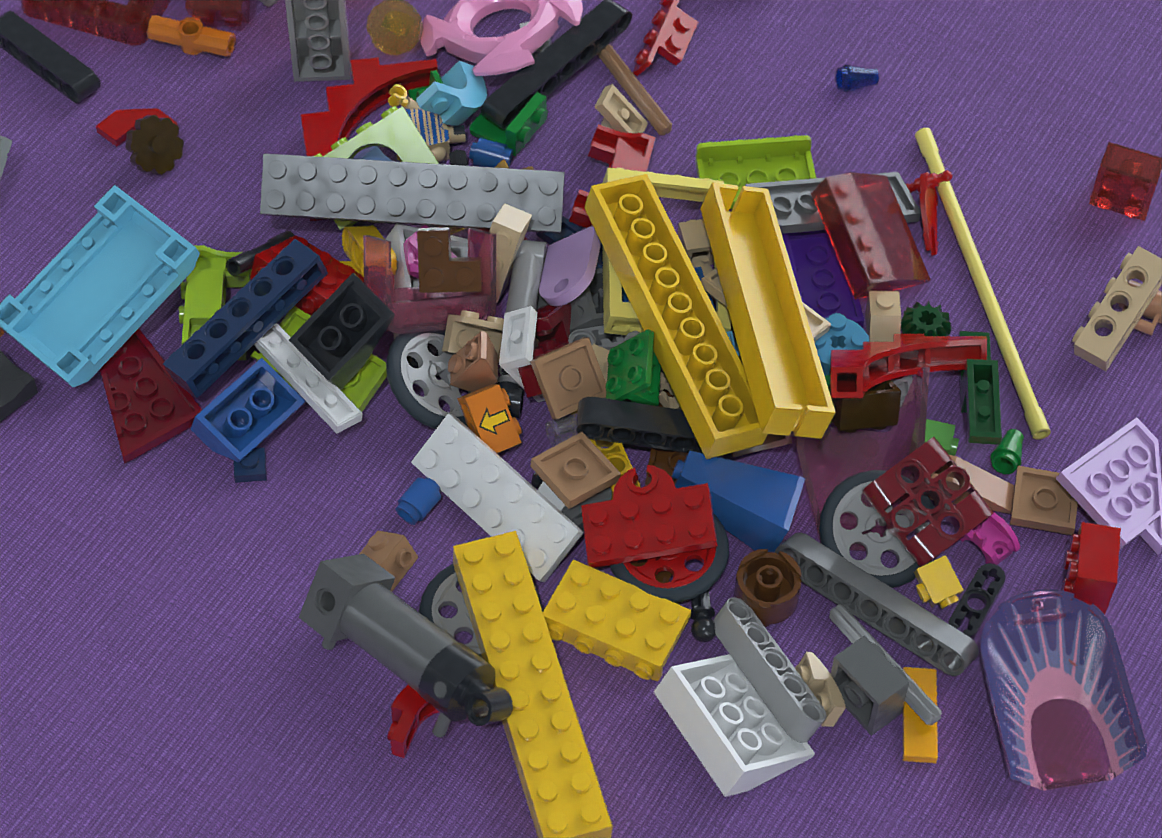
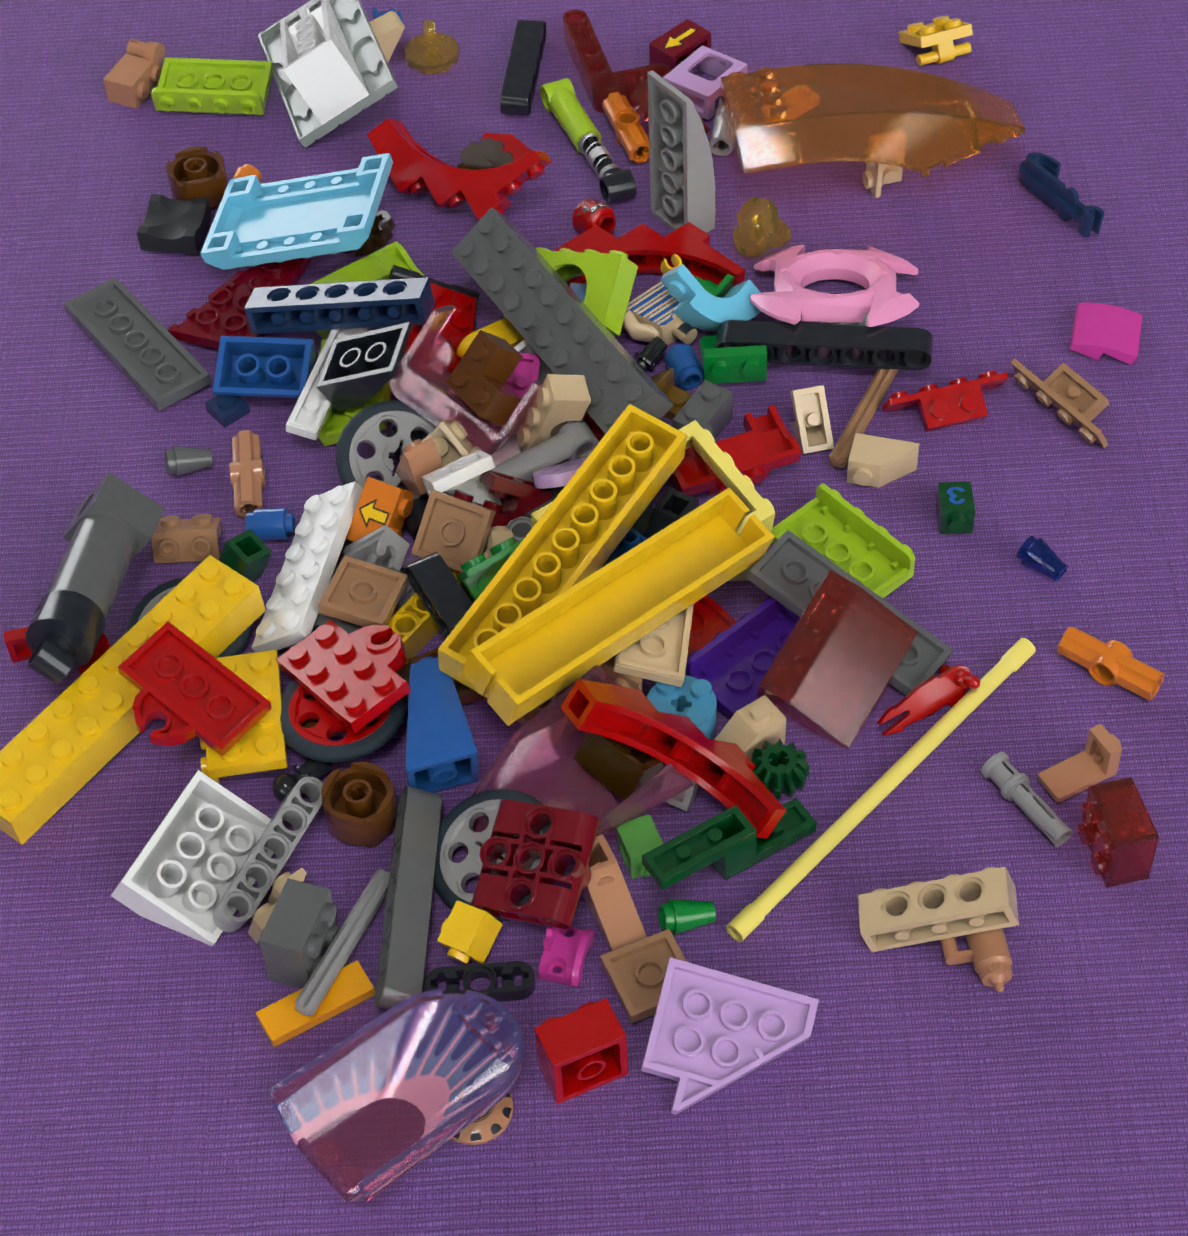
camera: 60 degrees right, 5 degrees down
(110, 55) = (562, 102): none -> piece
(111, 488) = (137, 343): none -> dark grey plate
(152, 174) = (451, 186): none -> red arch
(277, 116) = (592, 213): none -> red head
(290, 523) = (186, 460): none -> dark grey cone
(348, 488) = (247, 473): none -> nougat piece
(449, 529) = (246, 555): none -> dark green brick
(532, 439) = (380, 548): none -> light grey hinge
(557, 158) = (709, 407): none -> dark grey hinge
(593, 630) = (190, 693): none -> red plate
(688, 105) = (880, 460): none -> tan slope
(772, 92) = (955, 507): none -> dark green brick
(975, 100) = (1110, 663): none -> orange piece
(1039, 212) = (1016, 787): none -> light grey pin
(1050, 166) = (1085, 769): none -> nougat bracket

